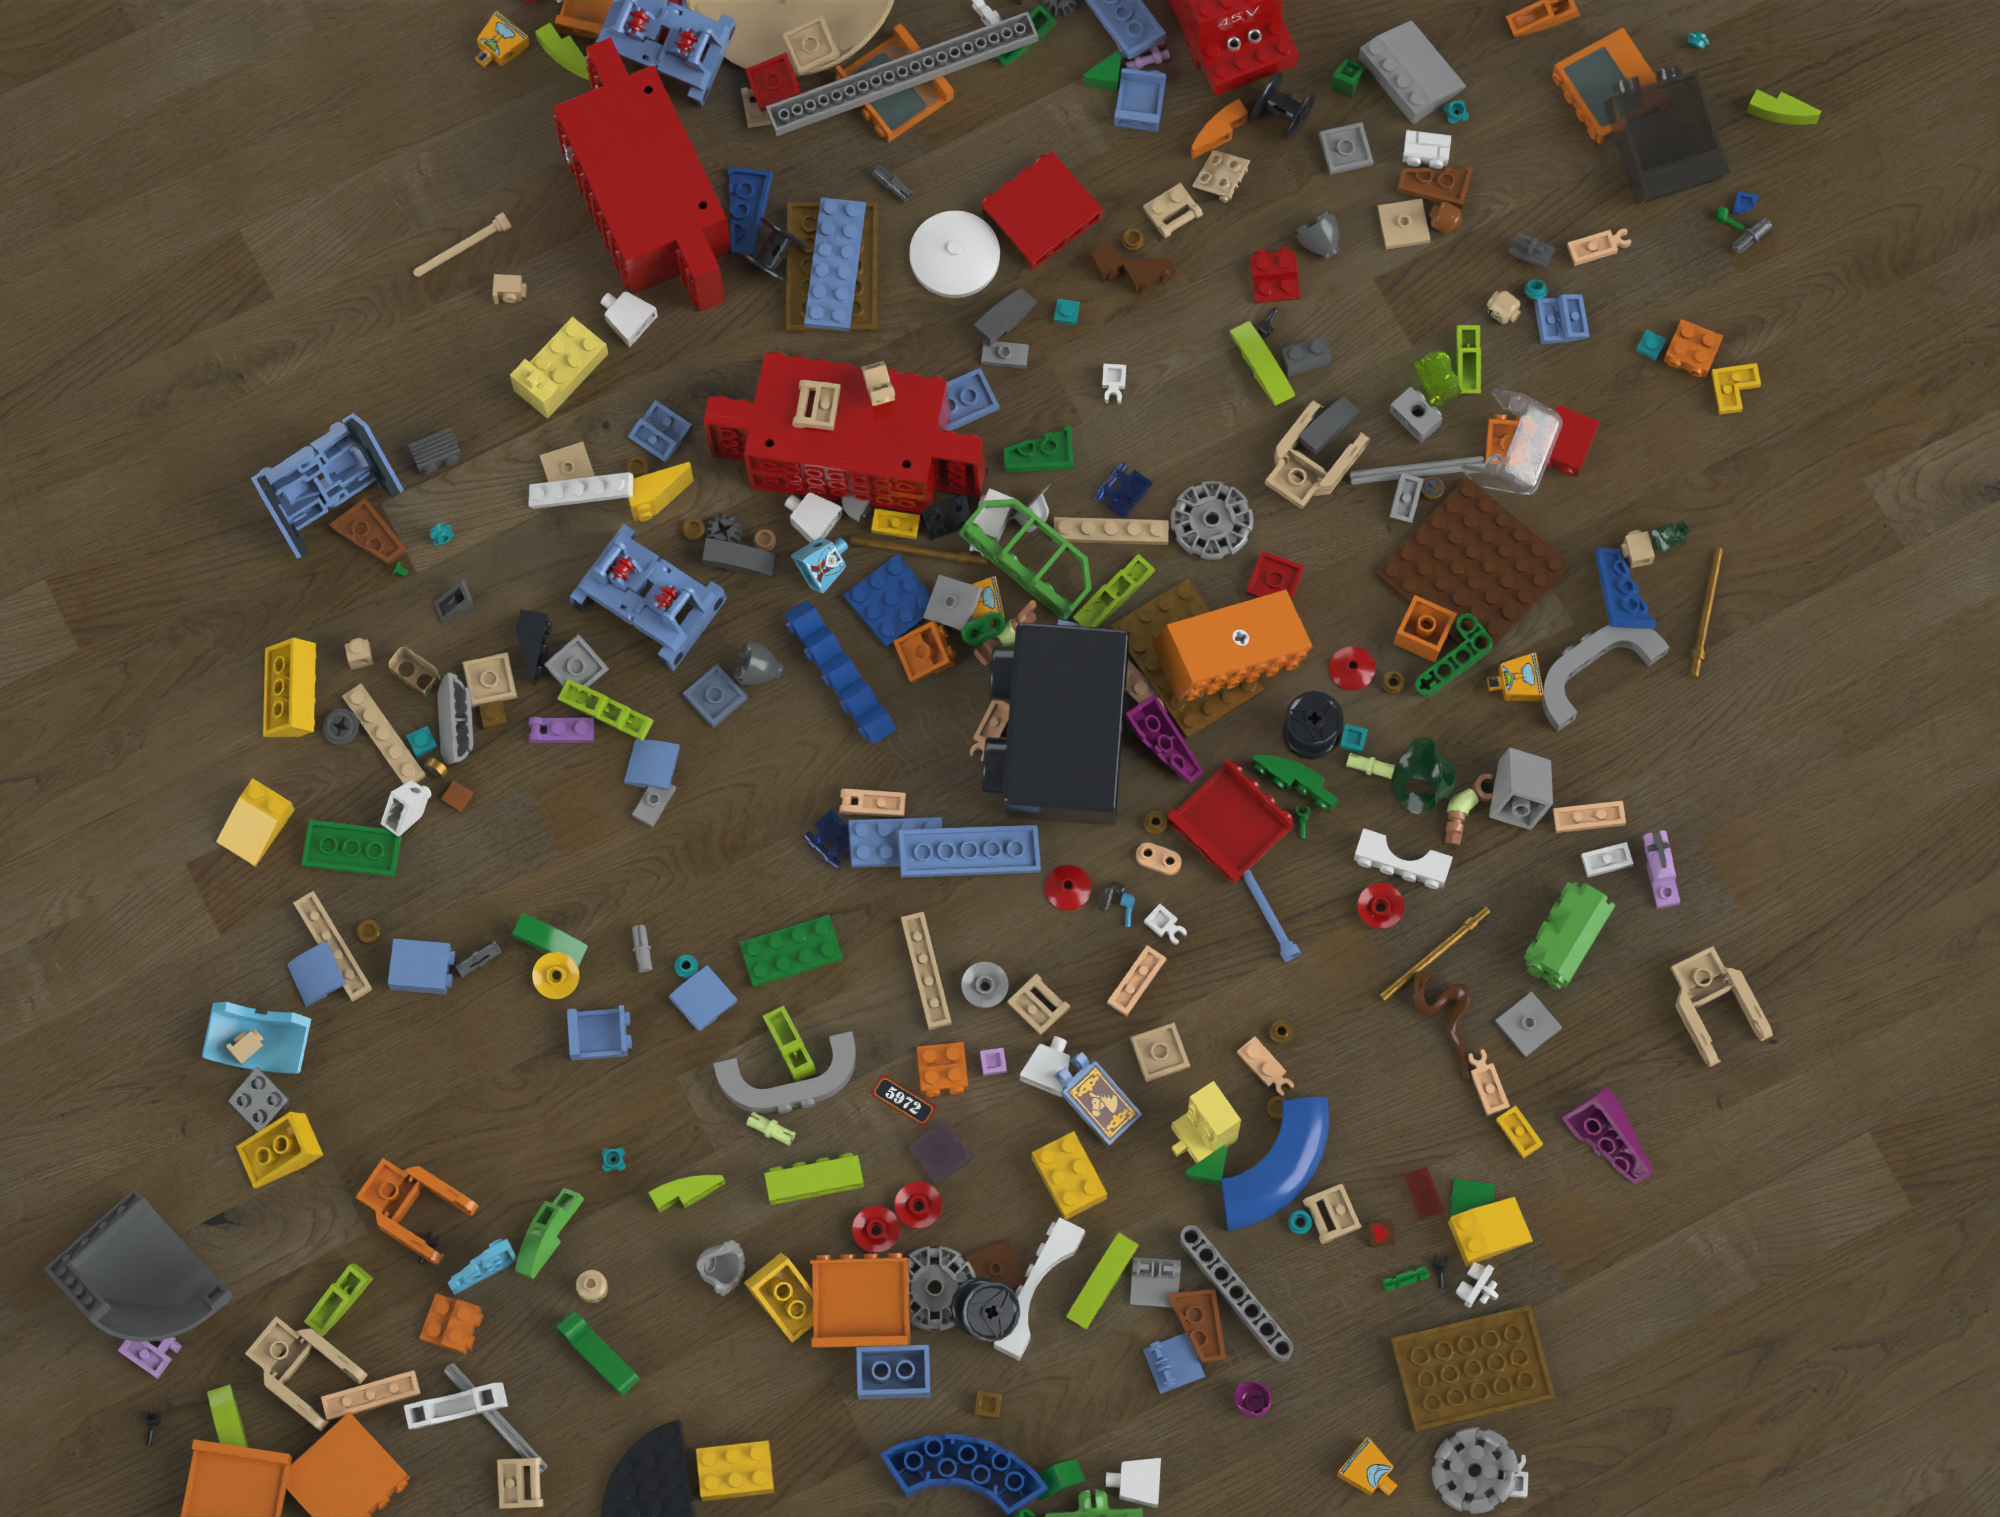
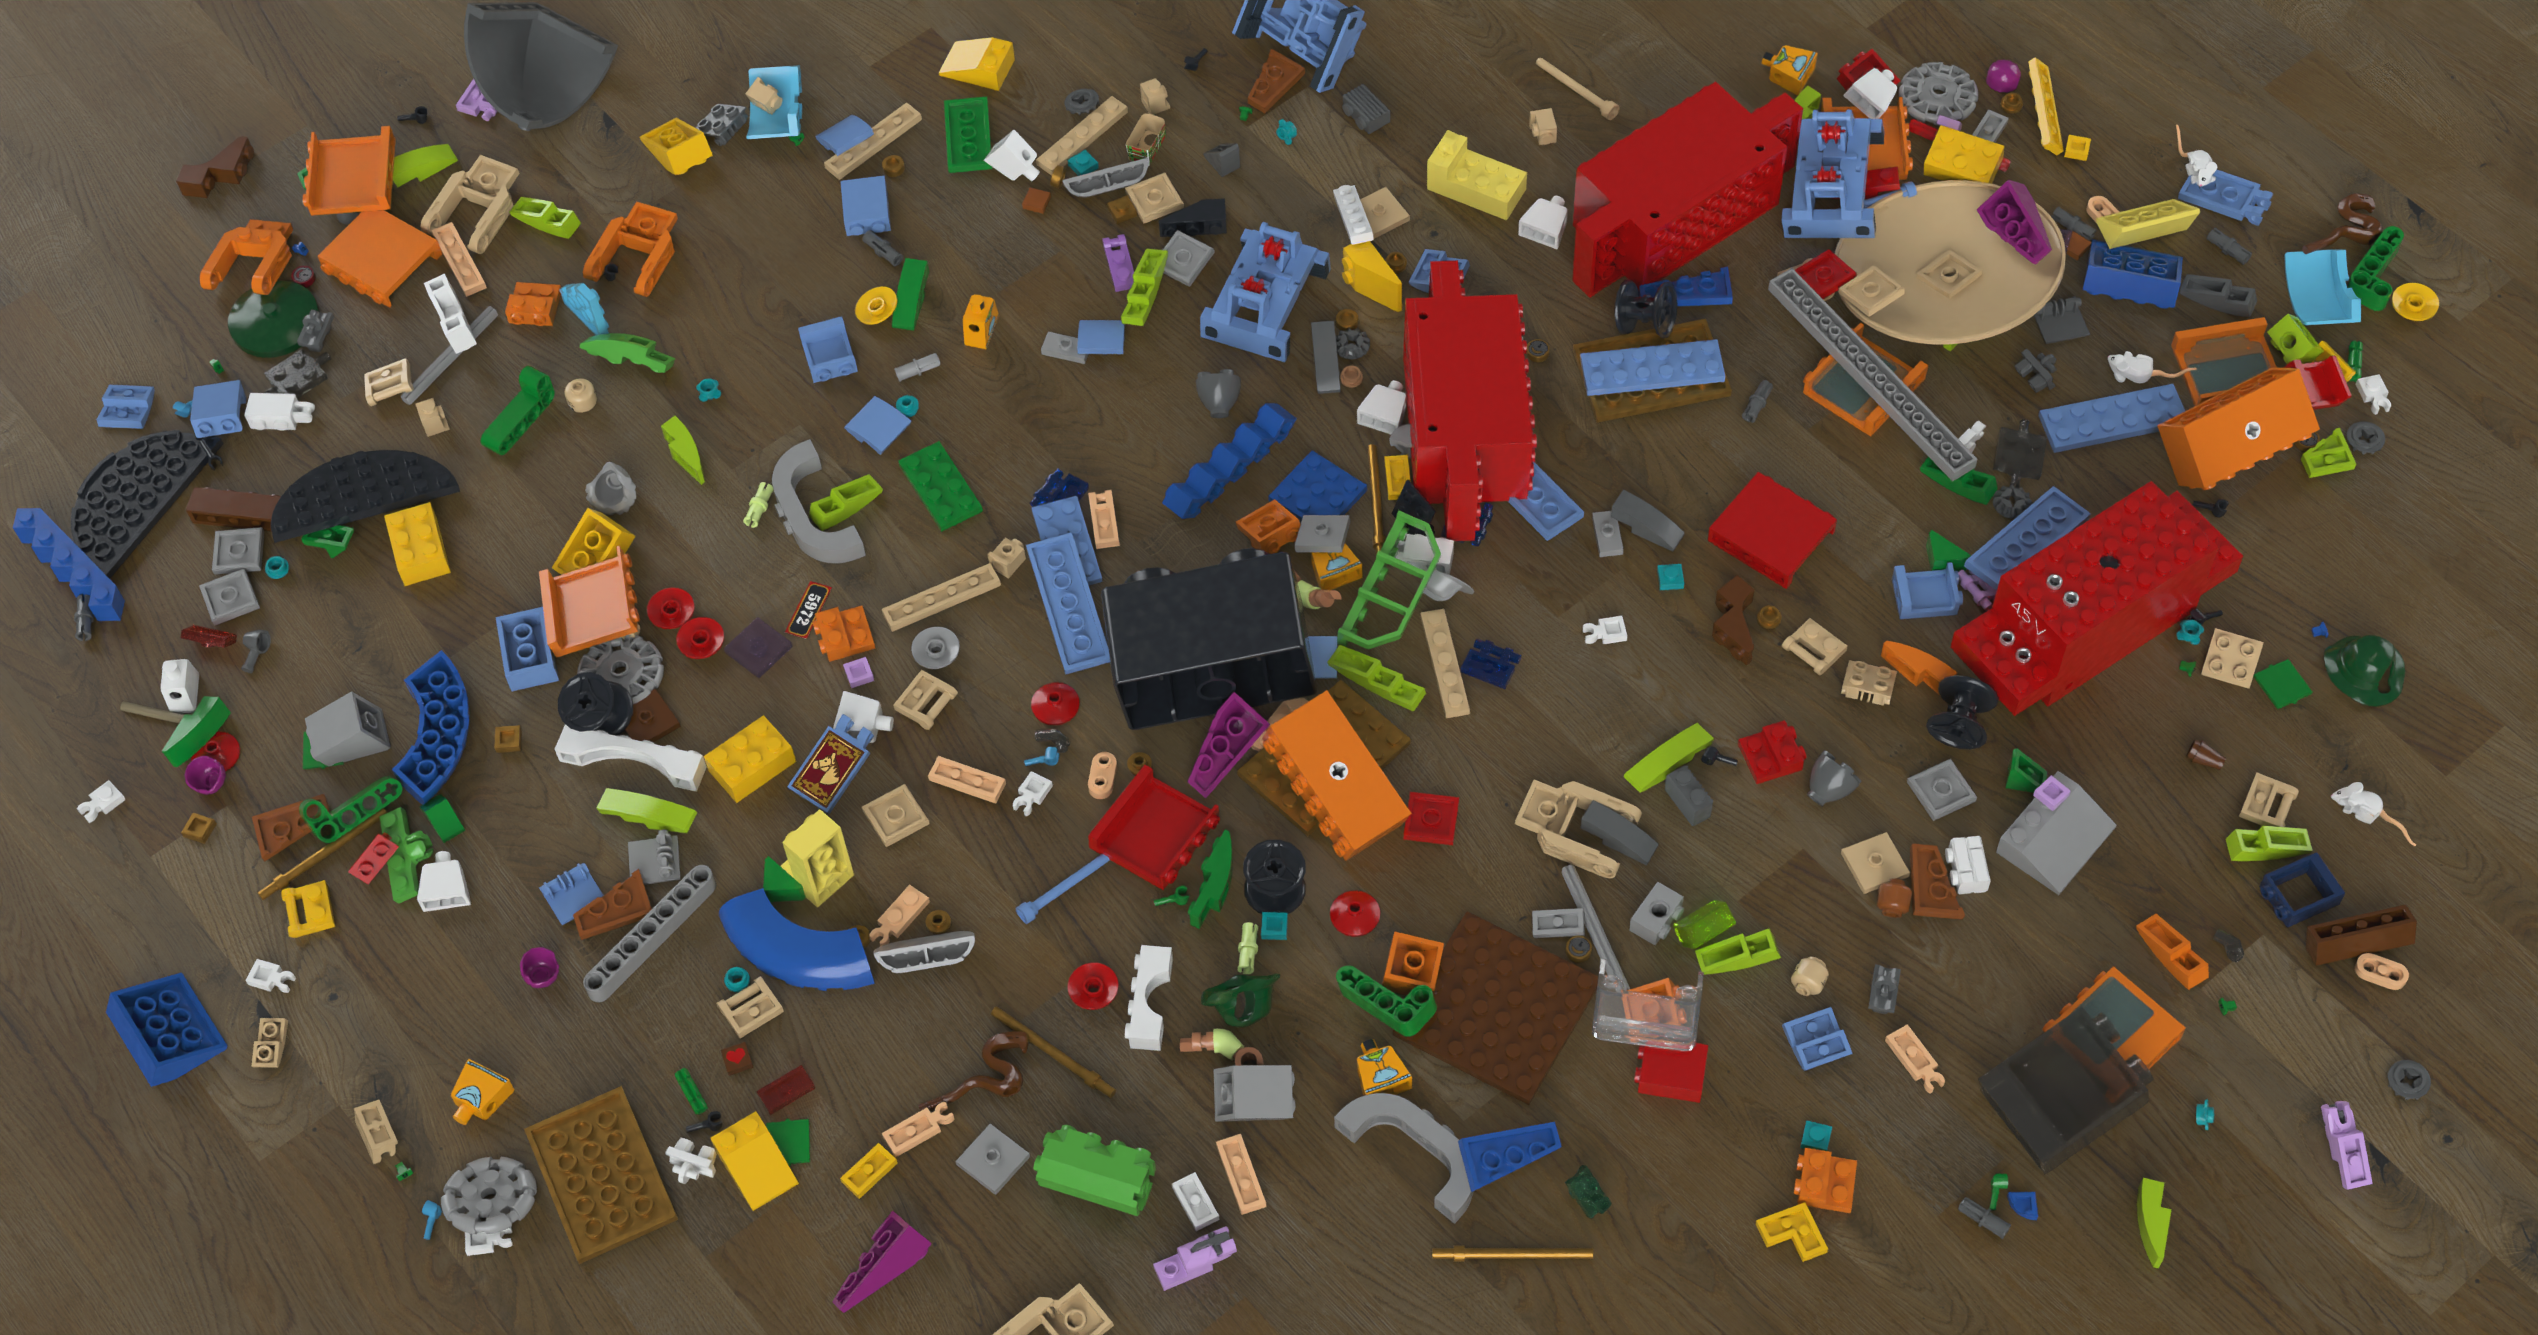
camera: 80 degrees right, 15 degrees down
(289, 689) = (1108, 58): yellow slope -> none
(318, 606) = (1192, 62): none -> black hand
(577, 1442) = (432, 417): none -> tan brick
(605, 876) = (981, 313): none -> light orange torso
(715, 695) = (1180, 372): sand blue tile -> none
(814, 1179) = (712, 548): lime brick -> none
(821, 562) = (1337, 419): medium azure torso -> none
(824, 405) = (1470, 344): tan plate -> none
(878, 383) = (1507, 382): tan brick -> none
(895, 908) = (1007, 557): none -> tan brick
(954, 254) = (1701, 469): white dish -> none
(981, 628) = (1302, 561): green plate -> none
(1043, 454) = (1508, 586): green wing -> none
(1207, 532) = (1478, 761): light grey plate -> none
(1311, 1045) = (925, 952): none -> light grey brick
(1389, 58) = (2051, 793): none -> lavender plate
(1393, 675) = (1347, 946): pearl gold plate -> none
(1456, 106) = (2027, 882): teal plate -> none
(1535, 289) = (1841, 1004): teal plate -> none
(1638, 549) = (1564, 1163): tan brick -> none

